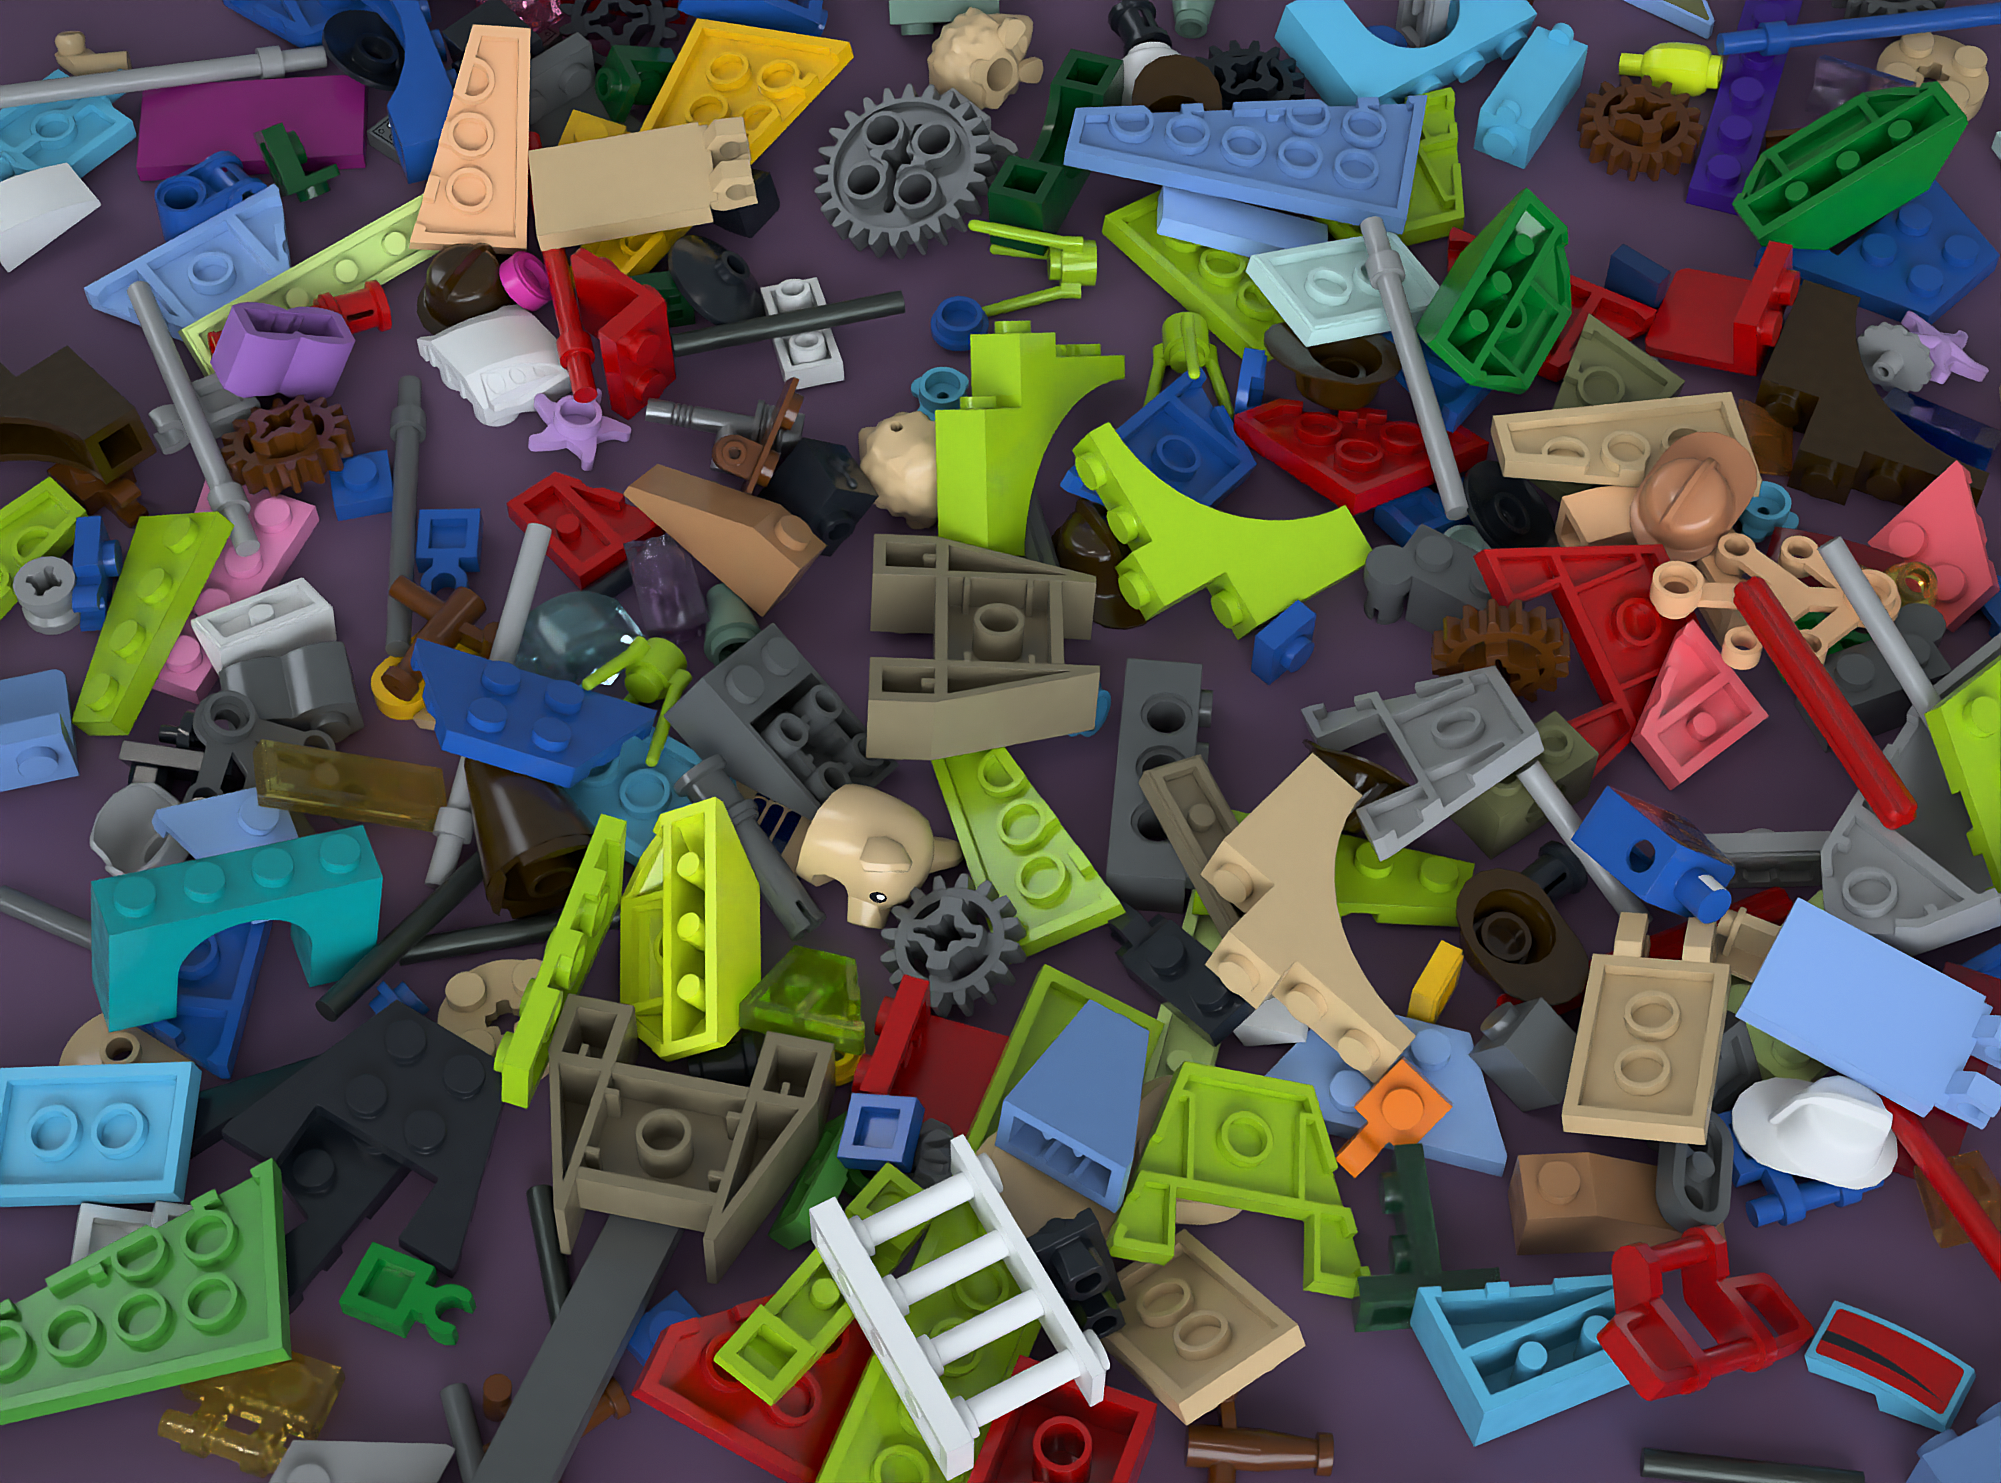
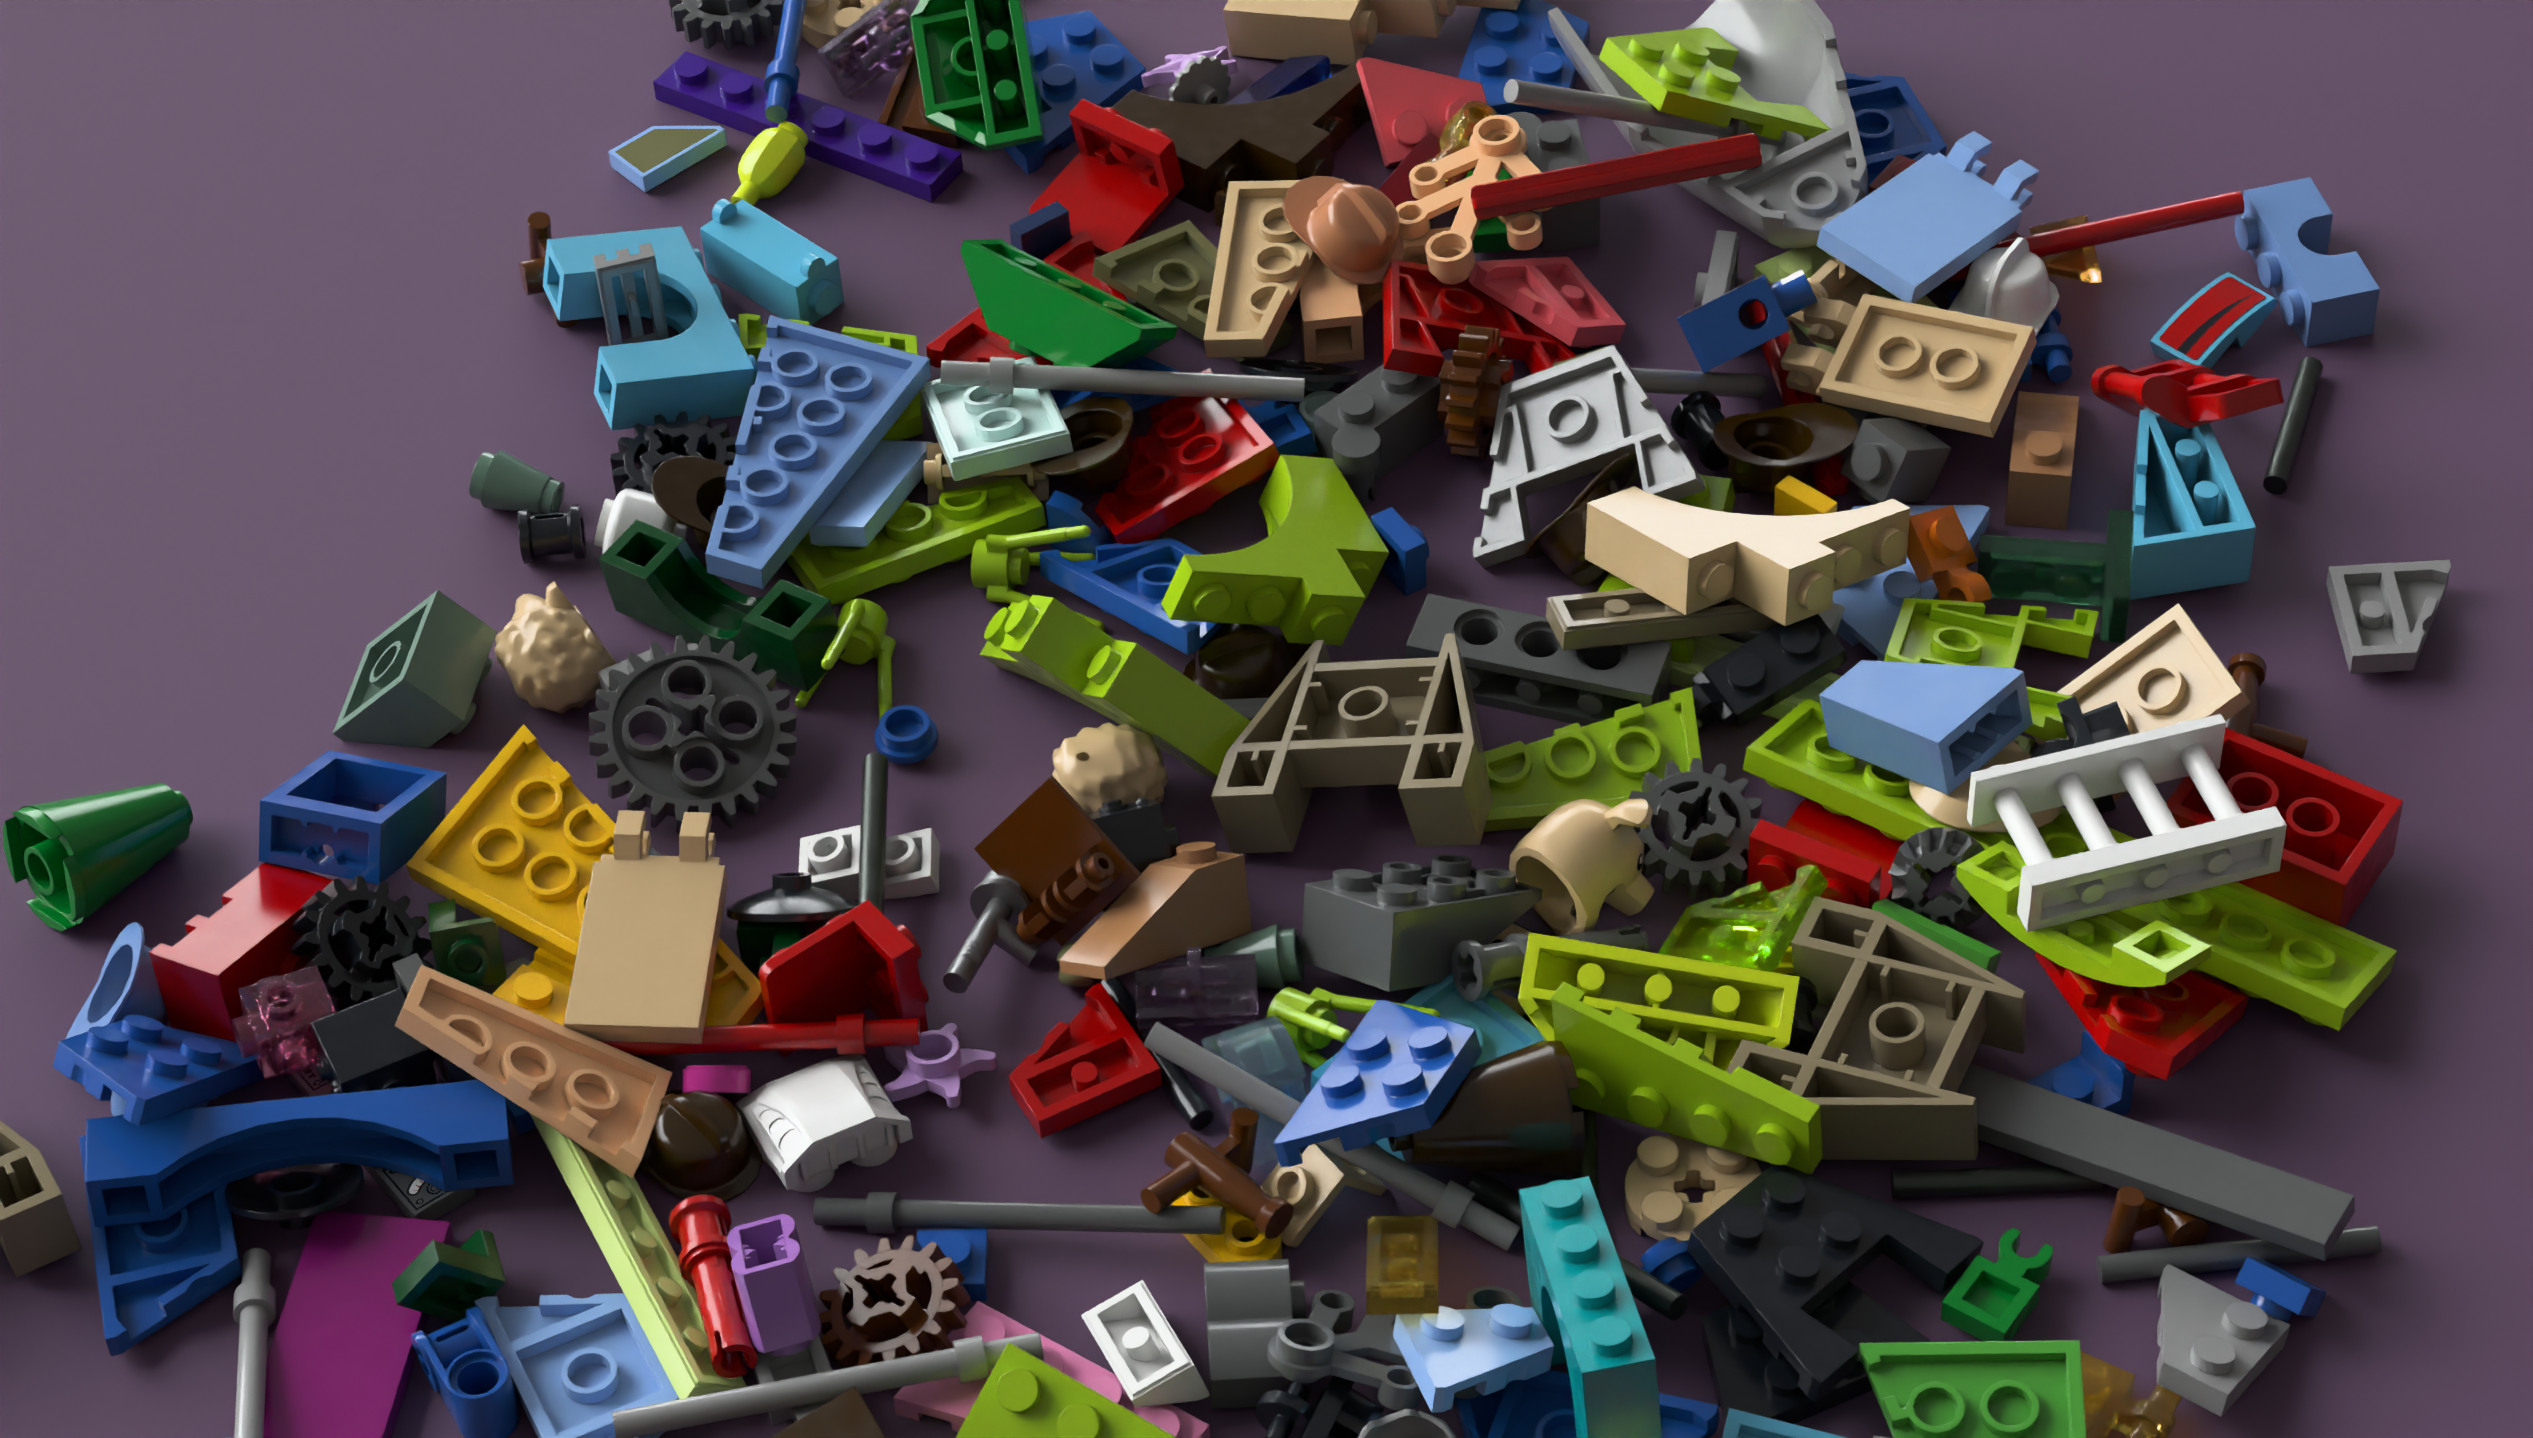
camera: 75 degrees left, 10 degrees down
(448, 547) = (1083, 1177): blue plate -> none
(880, 1132) = (1915, 877): plate -> none
(939, 390) = (998, 761): medium azure plate -> none
(1639, 128) = (844, 200): reddish brown gear -> none
(1696, 1179) = (2054, 384): dark grey plate -> none

